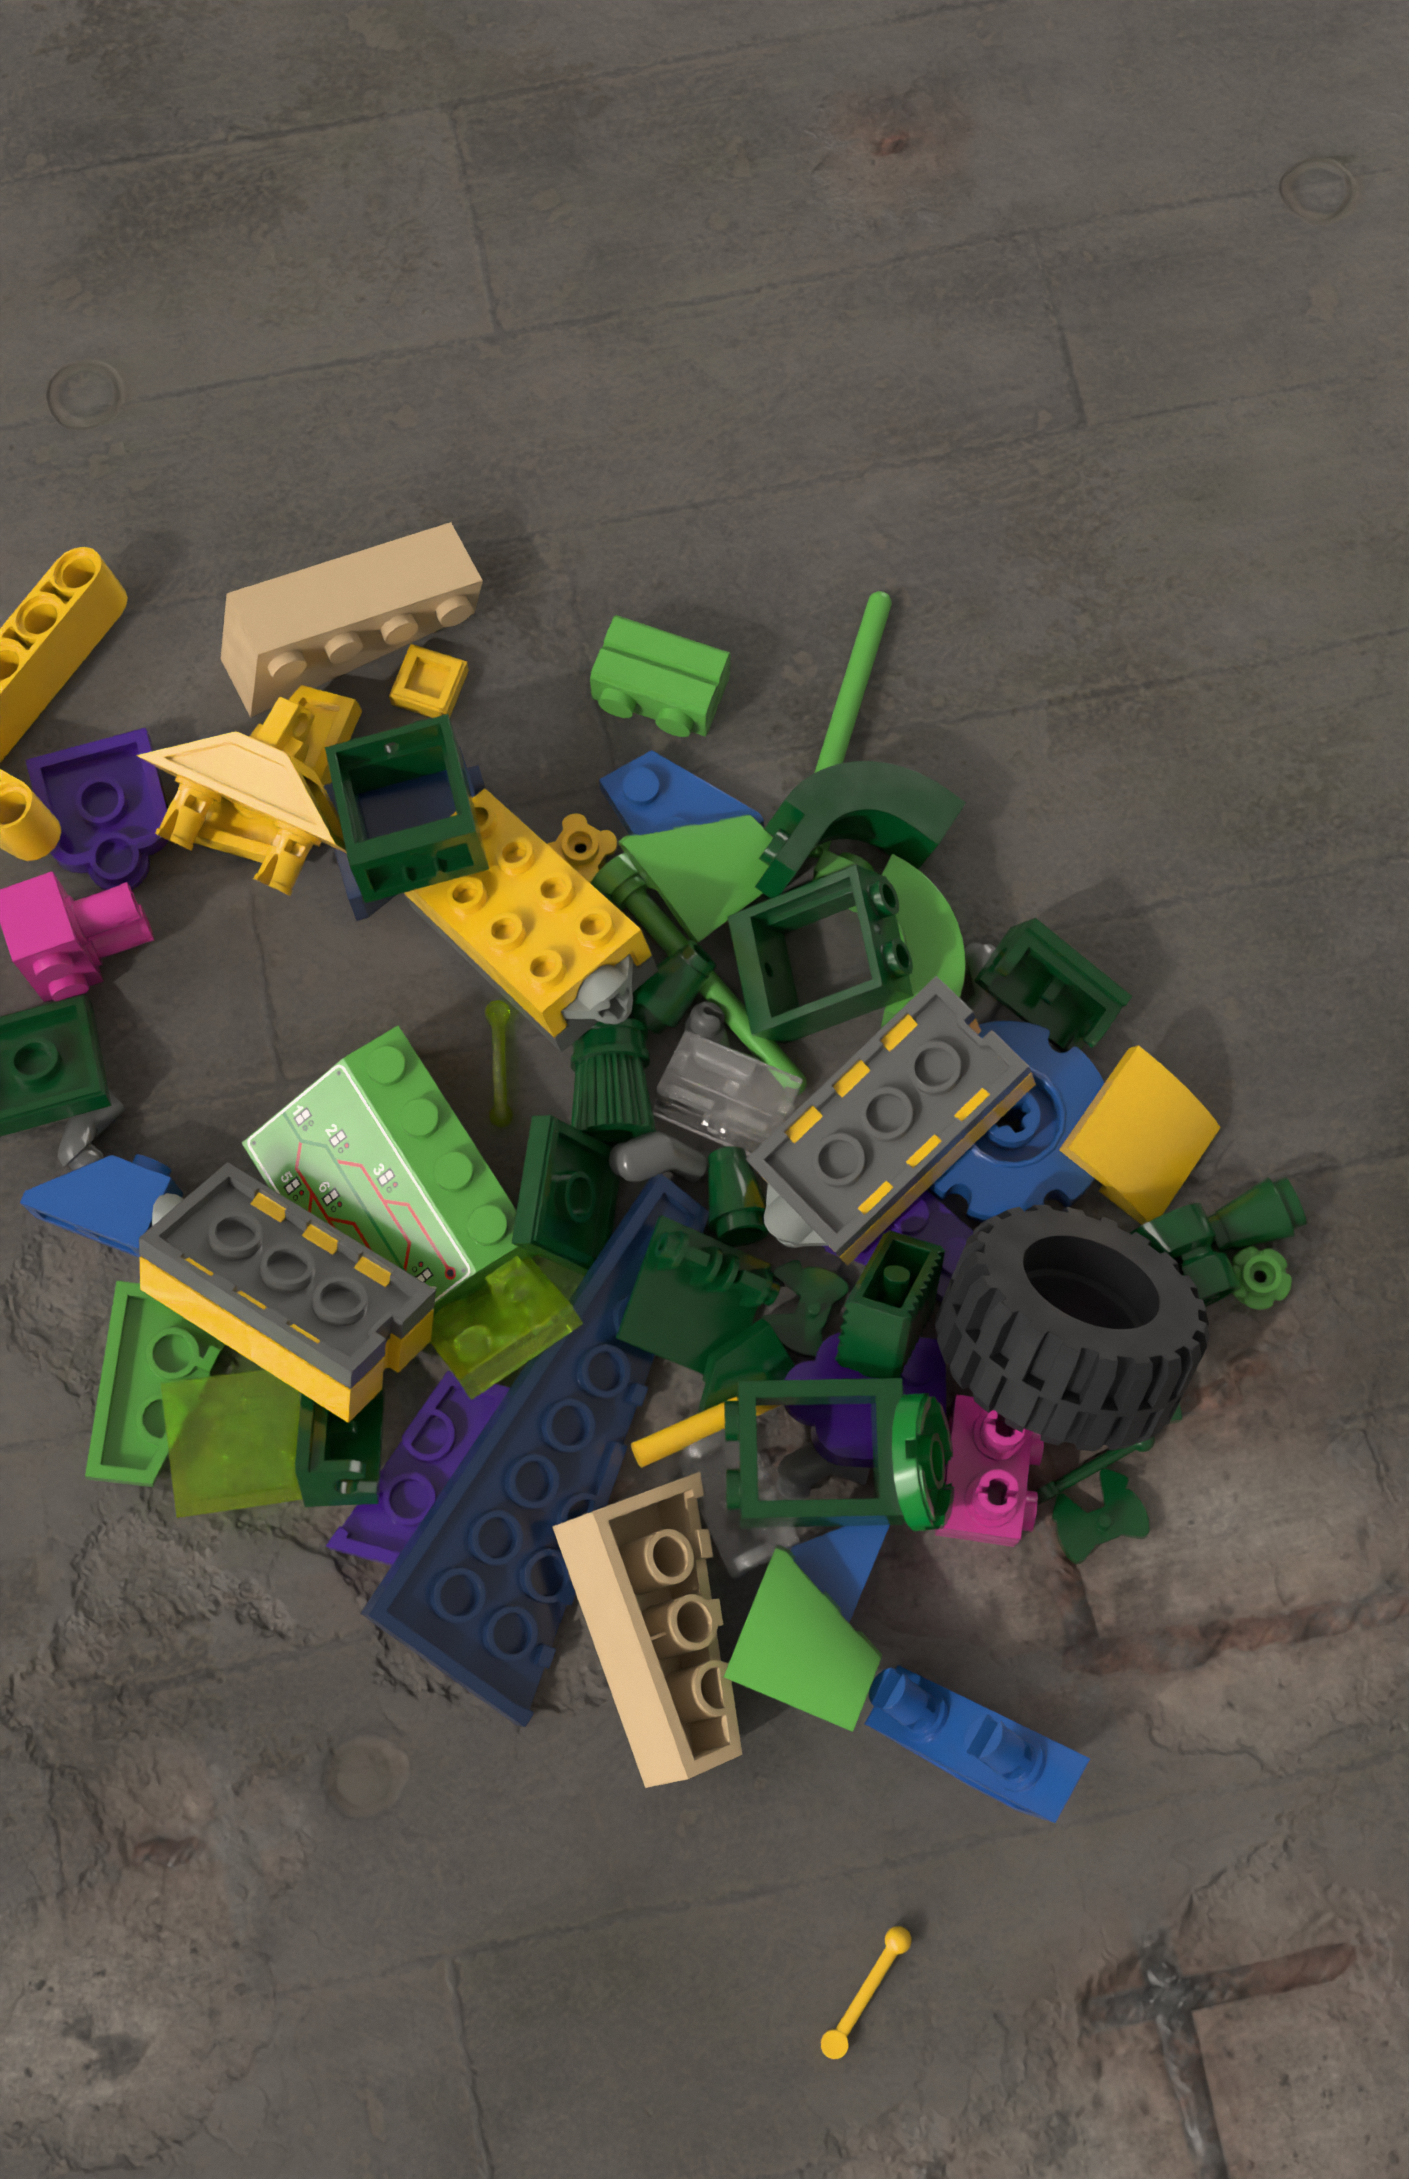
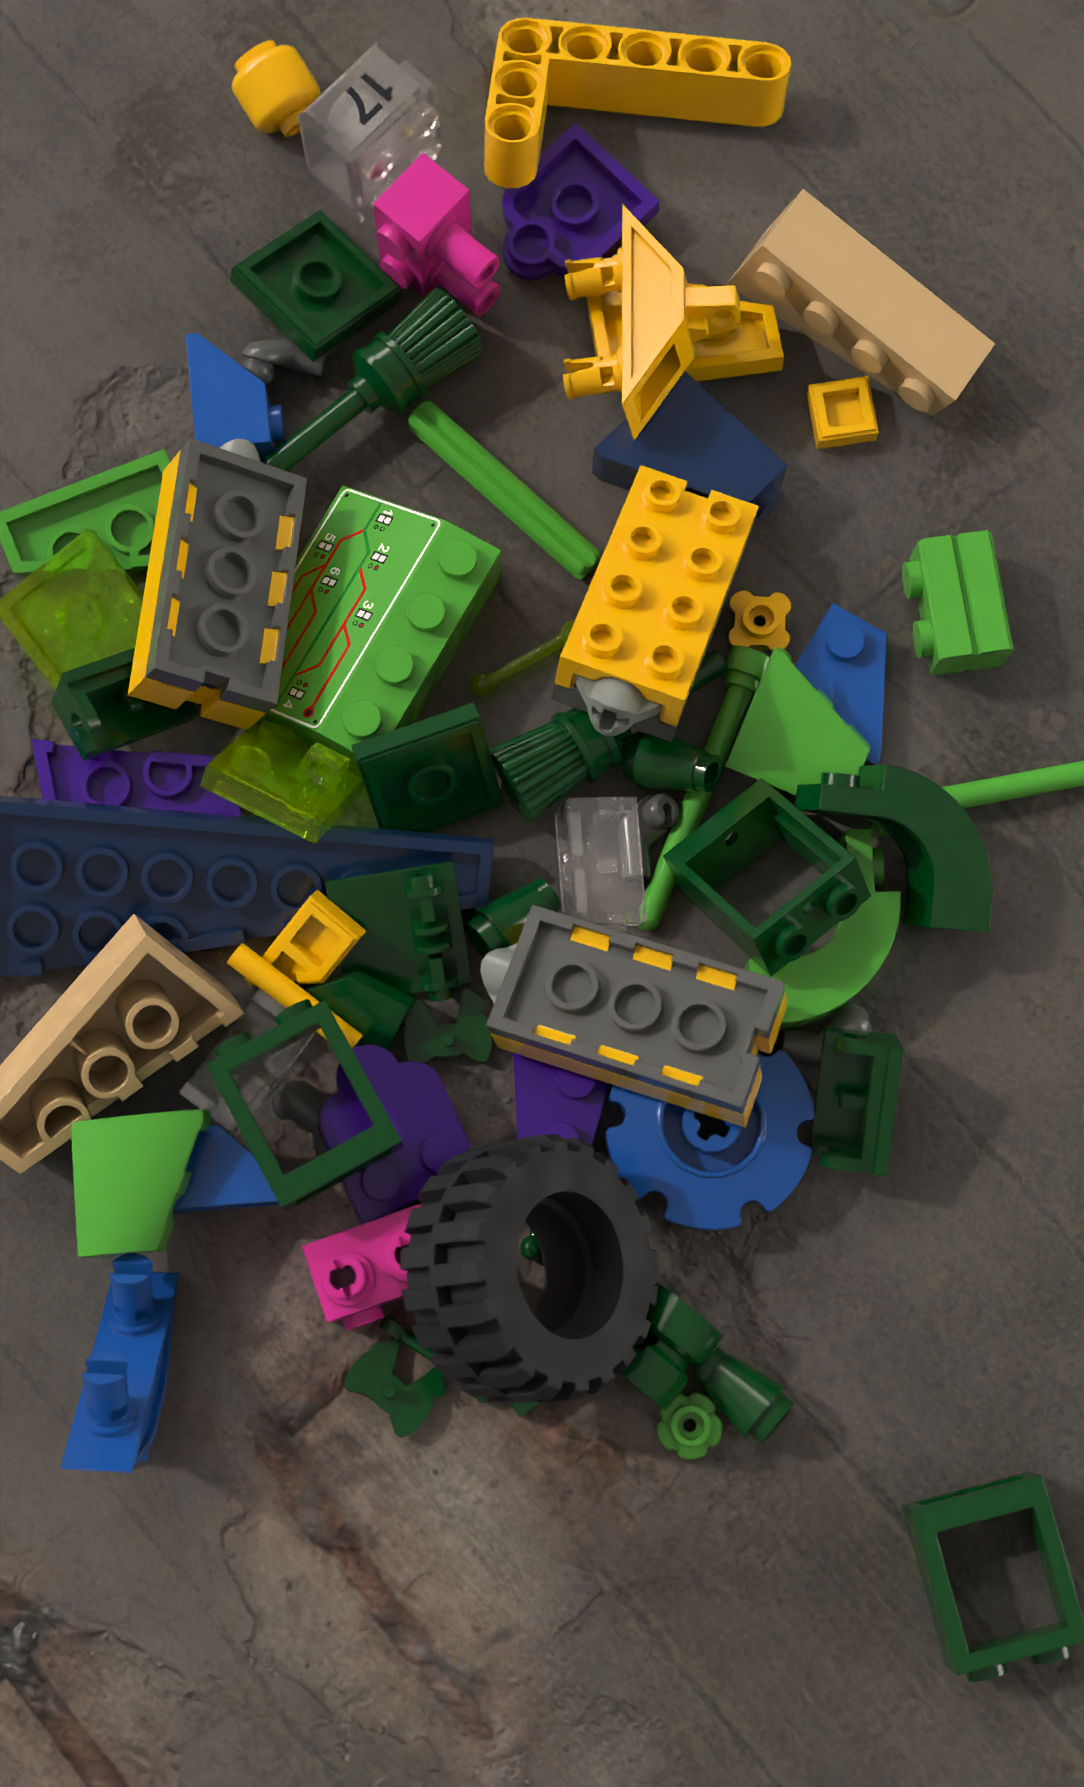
camera: 60 degrees right, 5 degrees up
(164, 1038) = (392, 372): none -> dark green piece
(330, 1002) = (504, 490): none -> bright green axle
(416, 854) = (654, 481): dark green window -> none
(654, 1155) = (511, 831): dark grey arm -> none
(664, 1379) = (314, 941): none -> yellow tile
(890, 1306) = (472, 1100): dark green brick -> none
(919, 1458) = (336, 1194): green tile -> none
(1141, 1136) = (760, 1251): yellow slope -> none

